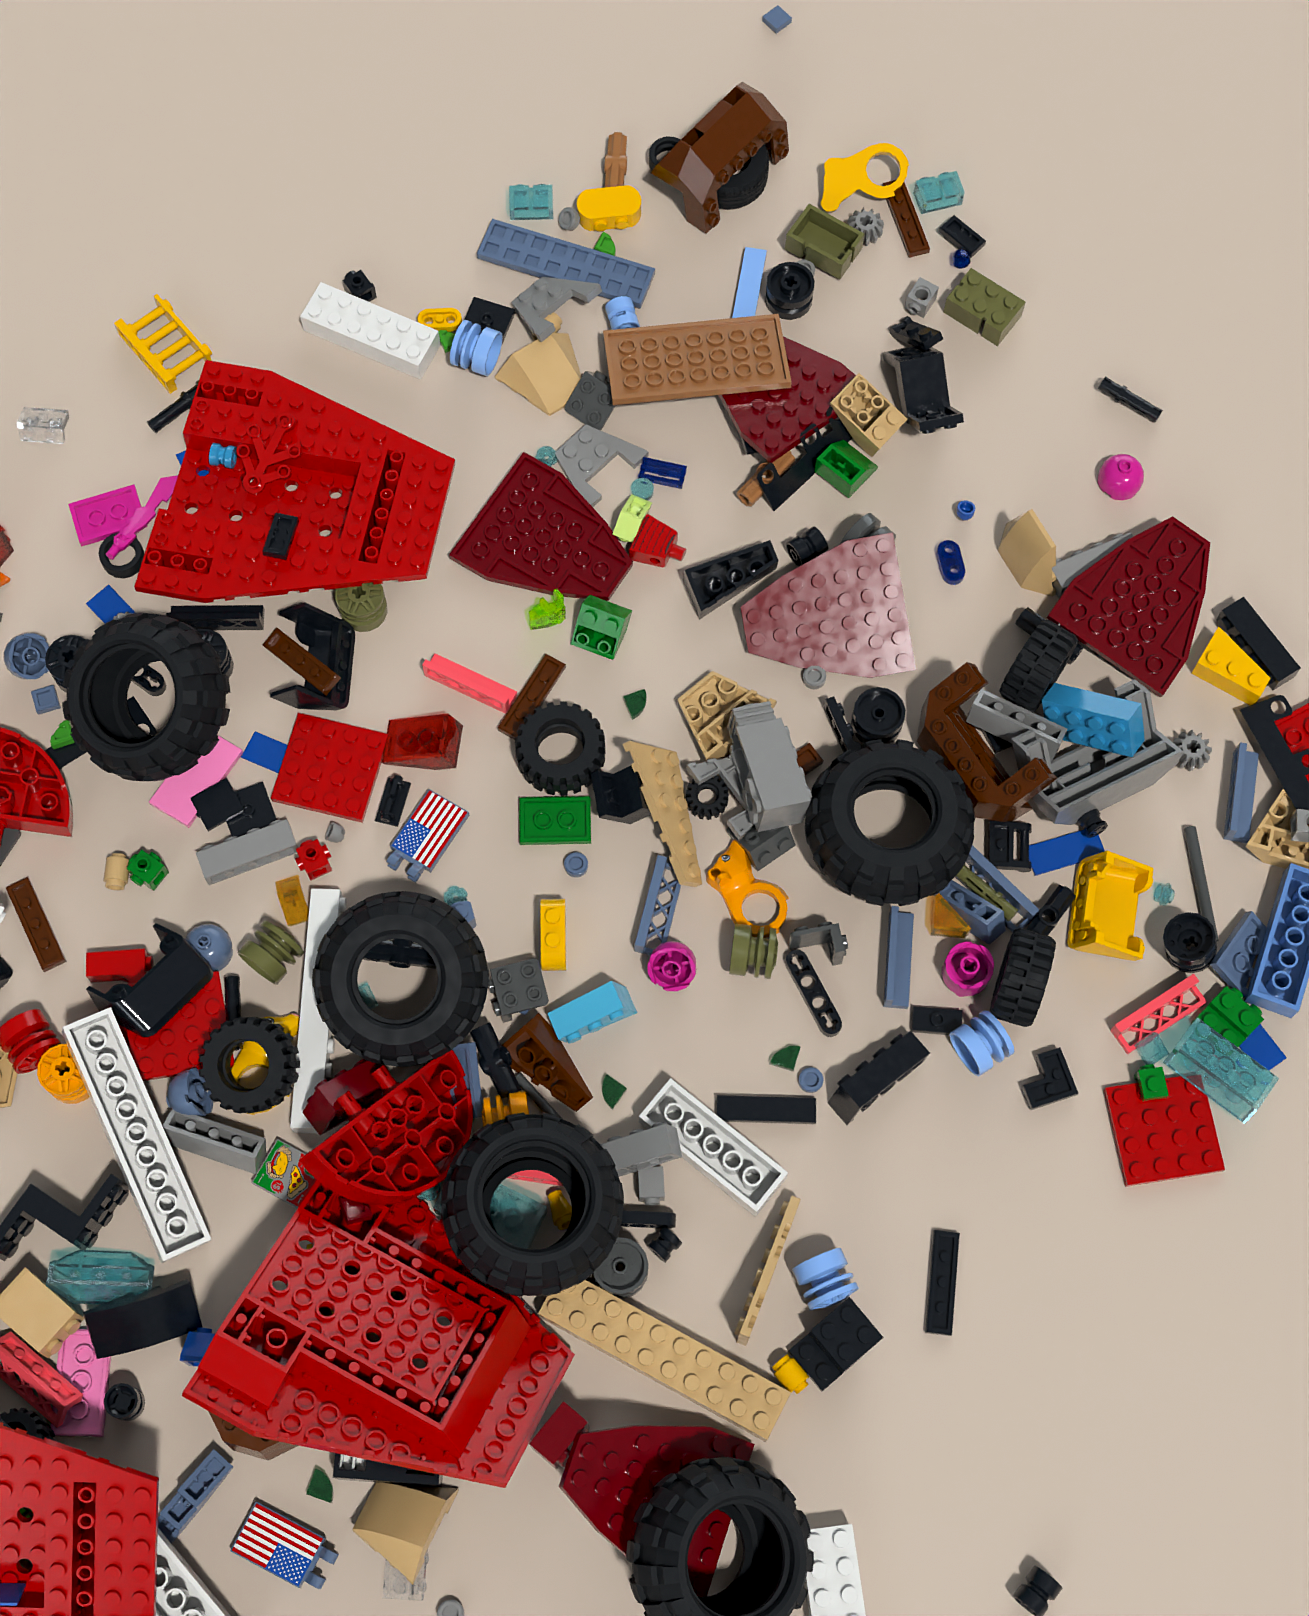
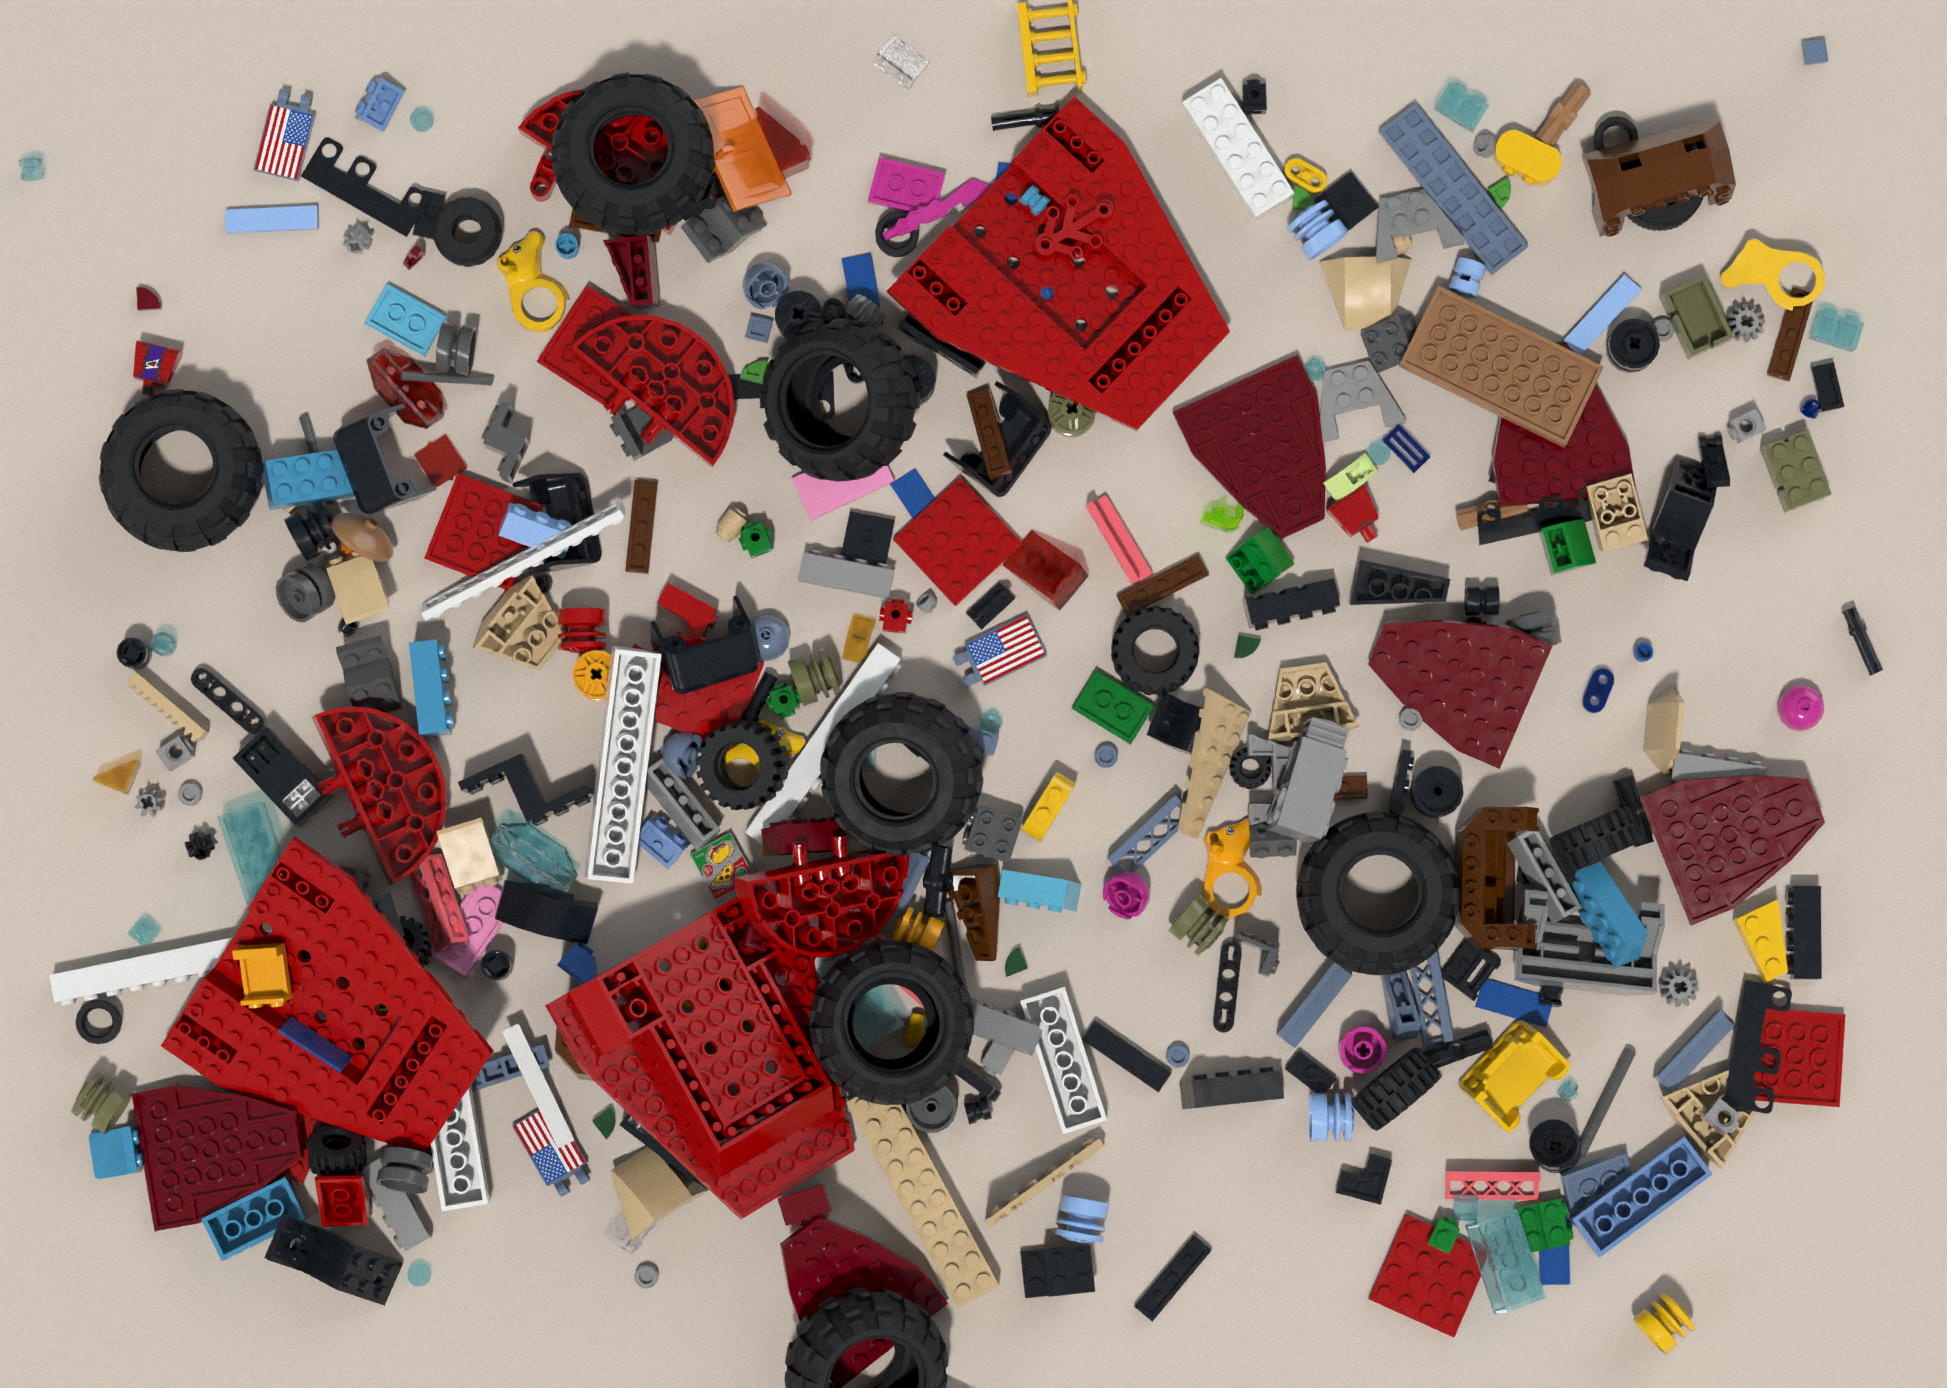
camera: 35 degrees right, 15 degrees up
(217, 804) = (845, 518): black piece -> none
(218, 1186) = (662, 840): none -> medium blue bracket
(232, 1493) = (538, 1085): none -> white sticker
(262, 996) = (787, 709): none -> green brick
(280, 536) = (1035, 321): black plate -> none
(649, 644) = (1291, 603): none -> black wedge
(786, 1058) = (1170, 1025): clear green tile -> none
(790, 1374) = (1009, 1271): yellow brick -> none
(946, 920) = (1373, 998): clear yellow slope -> none
(986, 892) = (1422, 999): olive pin -> none

